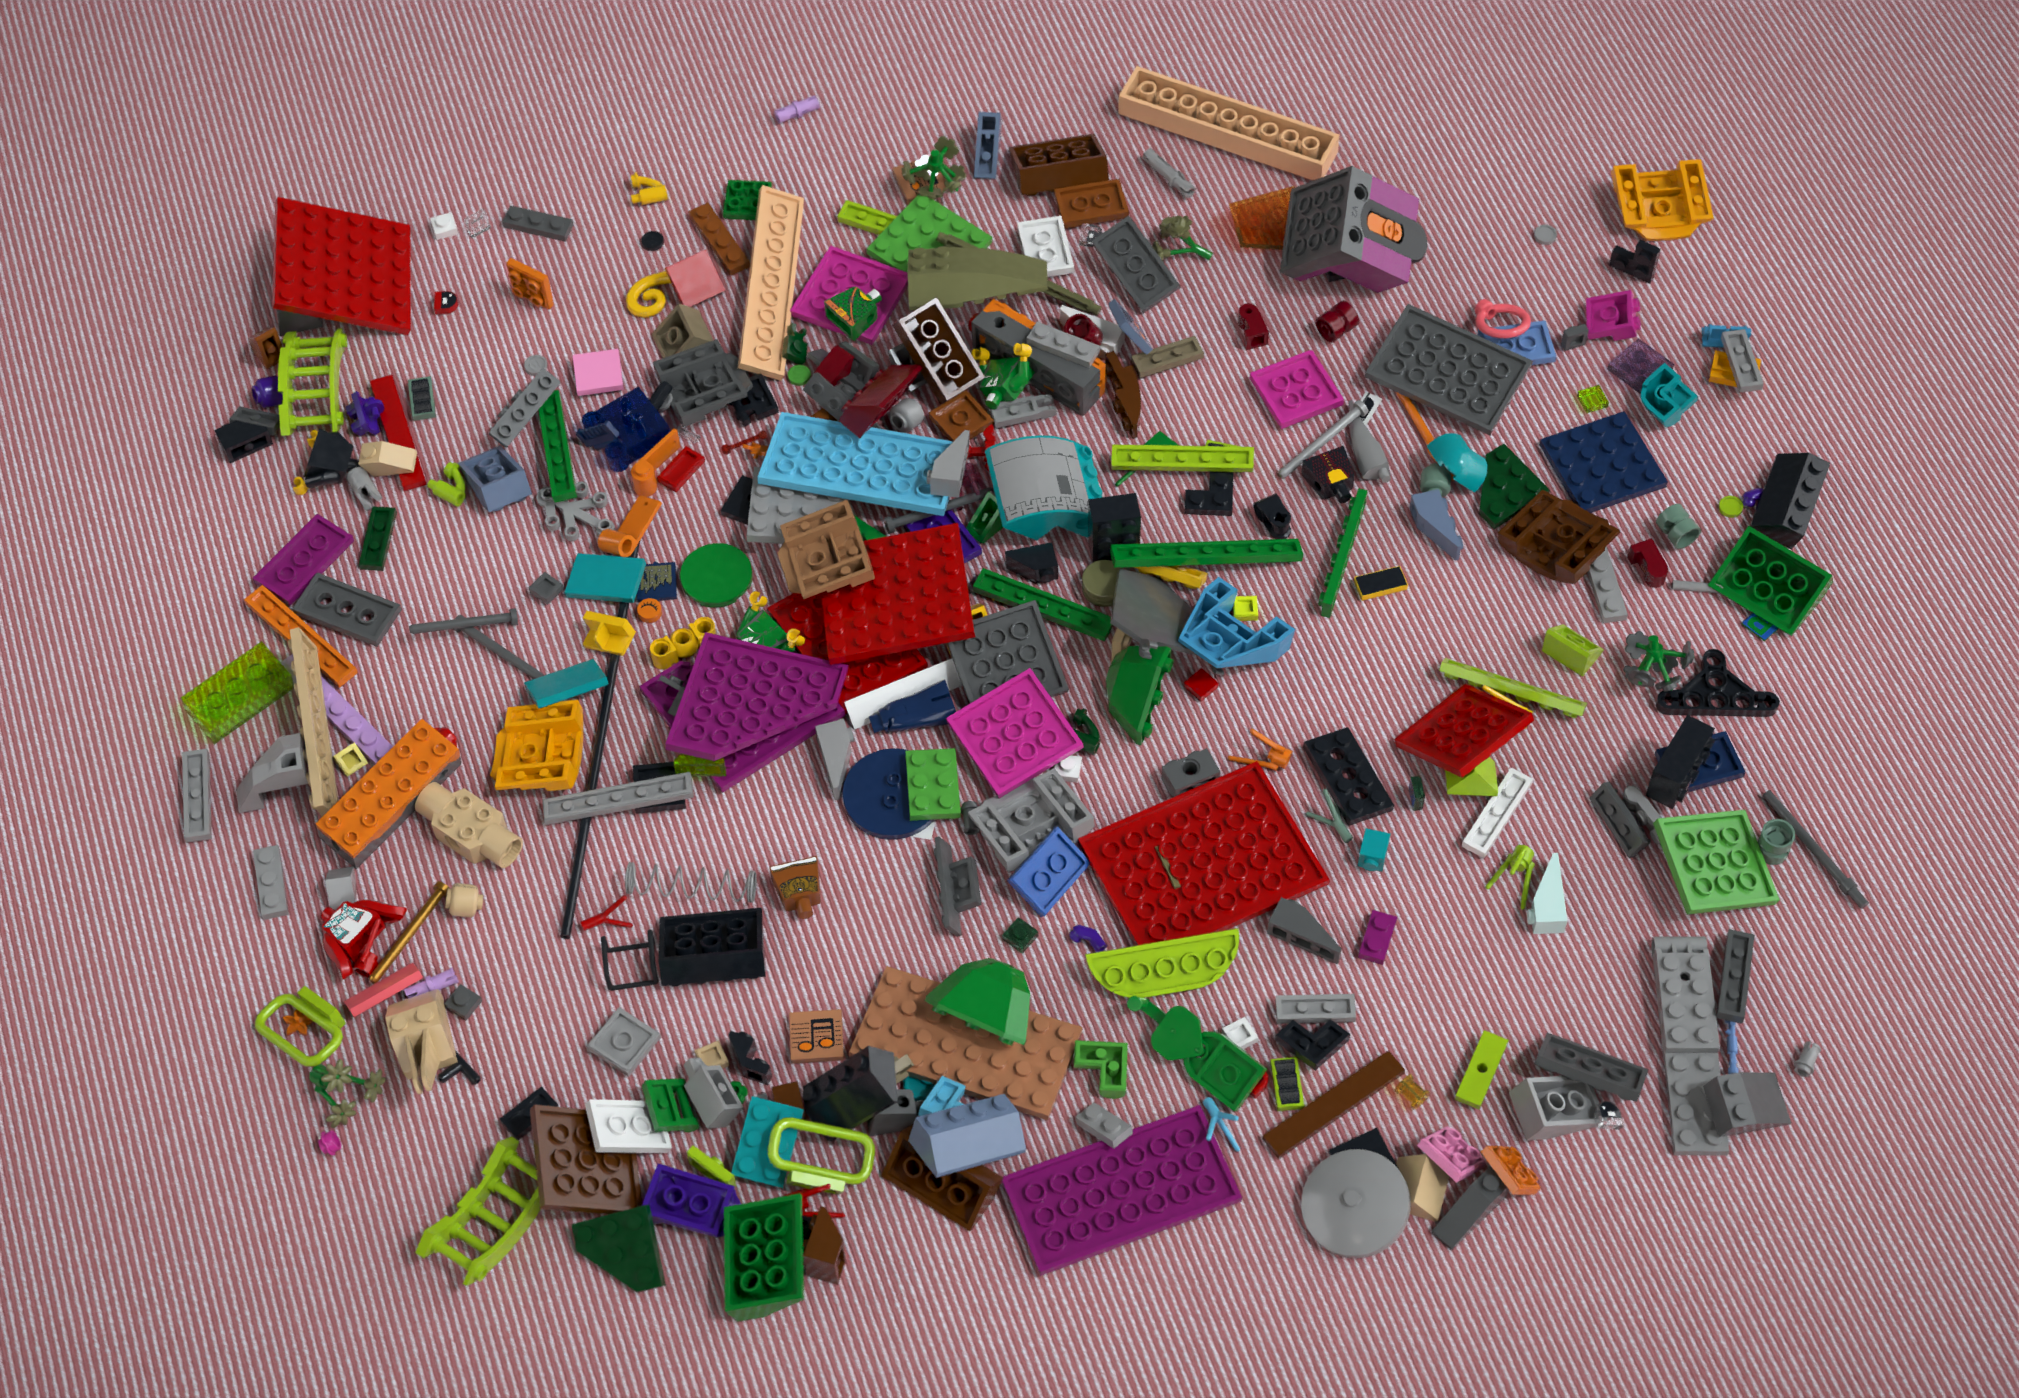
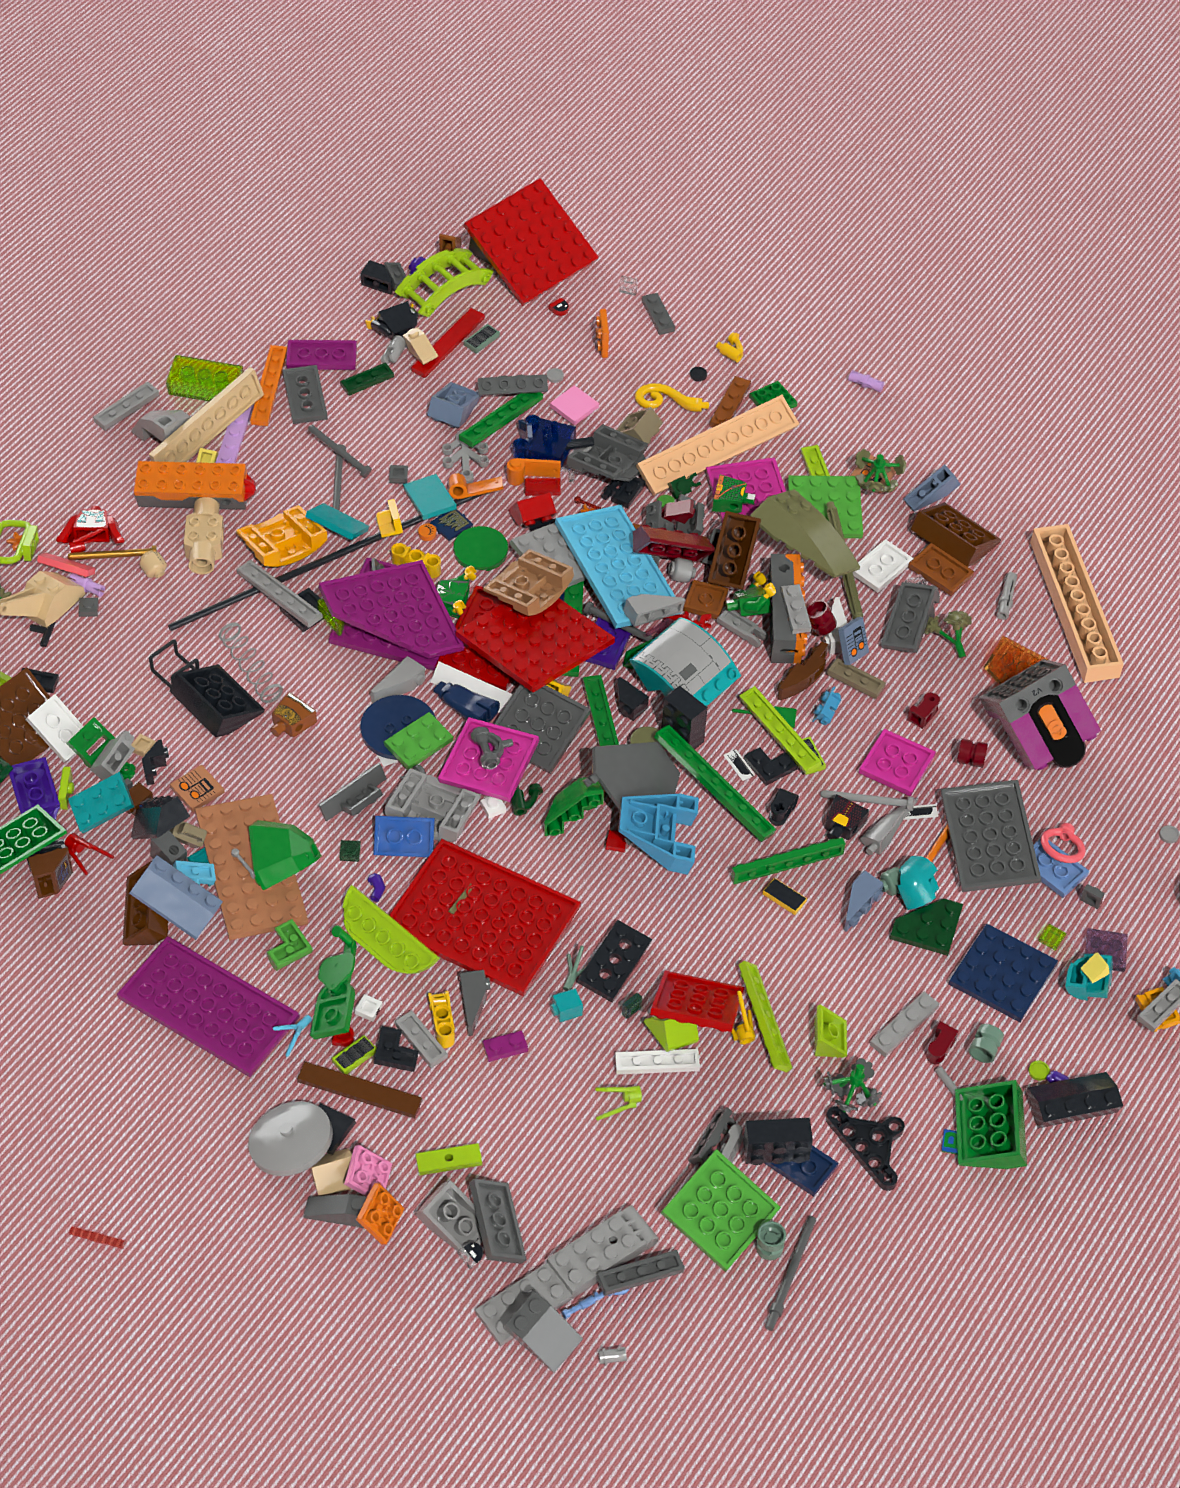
camera: 50 degrees right, 5 degrees down
(270, 882) = (98, 473): light grey plate -> none
(341, 886) = (119, 505): light grey slope -> none
(367, 413) = (444, 319): dark purple hips -> none
(444, 226) = (614, 273): white plate -> none
(447, 492) = (426, 387): lime plant -> none
(602, 917) = (196, 636): red plant -> none
(623, 1041) = (119, 696): light grey plate -> none
(695, 279) = (683, 407): tile -> none
(715, 494) = (533, 509): none -> red slope
(812, 1176) = (94, 838): lime bar -> none
(945, 1045) = (235, 853): none -> light grey hinge
(991, 718) = (481, 737): none -> dark grey piece
(1104, 1125) = (244, 969): light grey plate -> none
(1177, 401) = (823, 710): none -> dark azure hinge
(1188, 522) = (739, 765): none -> sticker
(1188, 576) = (691, 785): yellow plate -> none
(1197, 762) = (535, 862): dark grey brick -> none
(1245, 608) = (697, 832): neon yellow tile -> none
(1278, 754) = (597, 913): orange plant -> none
(1292, 964) = (441, 1007): none -> yellow piece
(1412, 1091) = (401, 1127): clear yellow bush -> none
(1548, 906) = (612, 1127): light aqua slope -> none
(1556, 537) = (910, 973): reddish brown slope -> none
(1613, 315) = (1132, 909): dark pink plate -> none
(1670, 383) = (1095, 968): none -> light yellow slope

